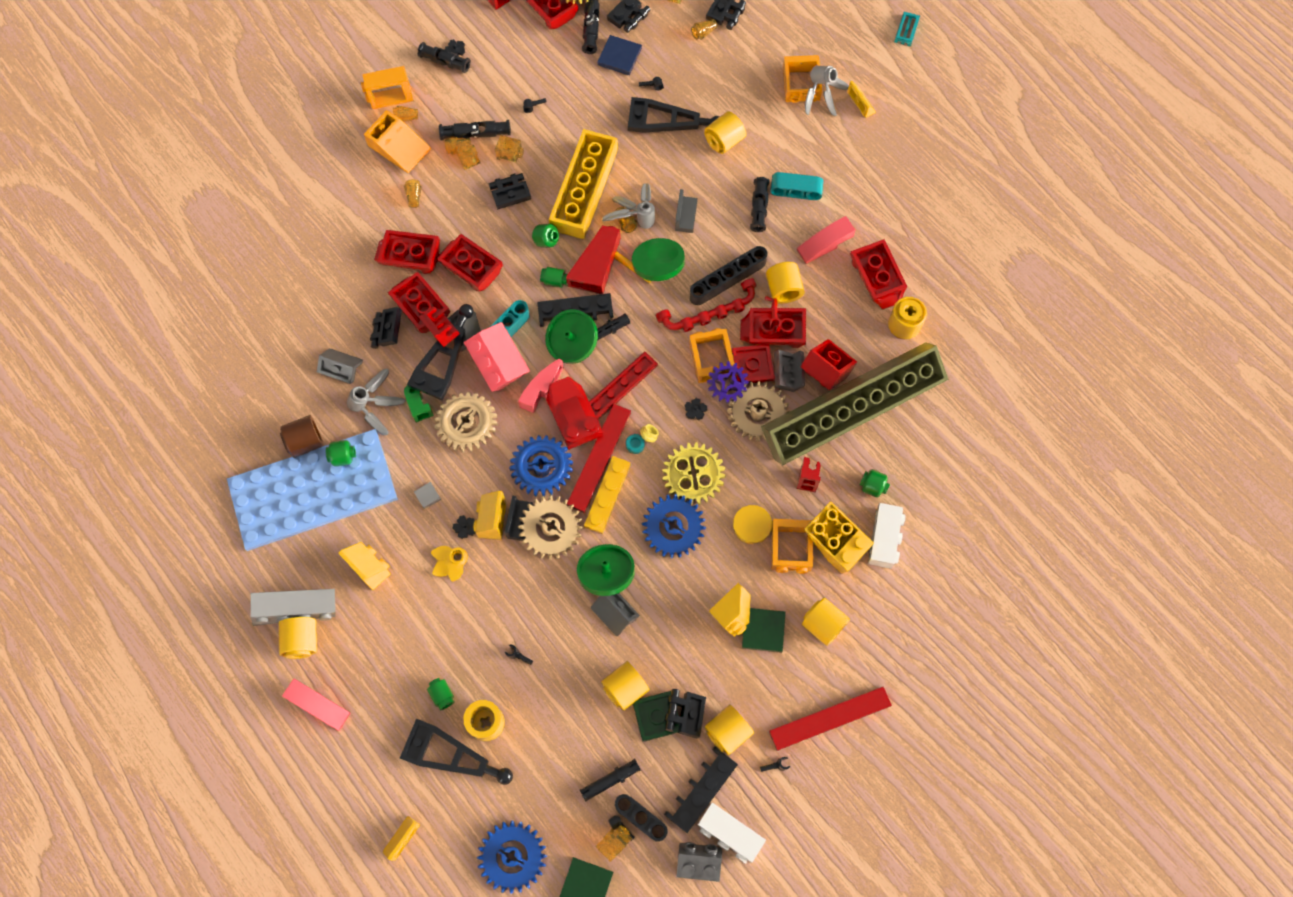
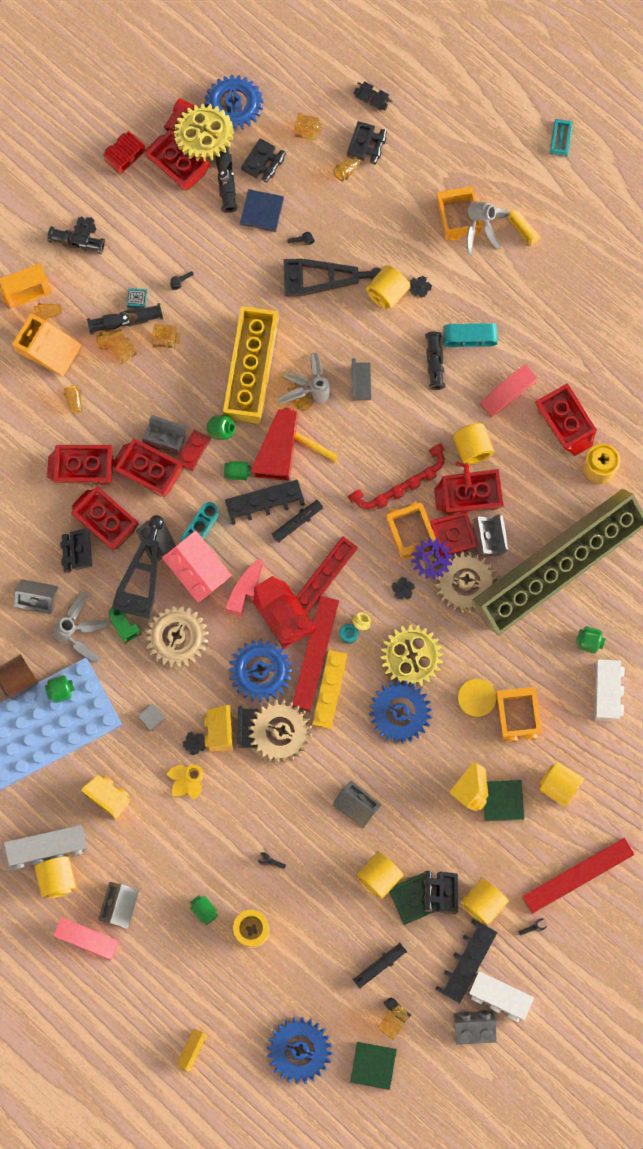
camera: 10 degrees left, 5 degrees up
(357, 675) = (118, 905): none -> panel
(420, 739) = (192, 956): black plate -> none
(439, 326) = (134, 543): red hinge -> none
(489, 113) = (136, 298): none -> tile
(491, 235) = (164, 434): none -> flat silver bracket
(511, 194) = (175, 386): black plate -> none
(516, 253) = (193, 449): none -> red plate
(571, 336) = (266, 532): green piece -> none
(605, 570) = (342, 765): green piece -> none
(635, 808) = (424, 996): black beam -> none
(658, 259) = (341, 436): green piece -> none
(733, 268) = (417, 435): black beam -> none
(755, 139) = (420, 286): none -> black plant
(808, 478) = (523, 645): red hinge -> none
(828, 364) = (529, 525): red brick -> none
(838, 538) = (562, 701): yellow slope -> none

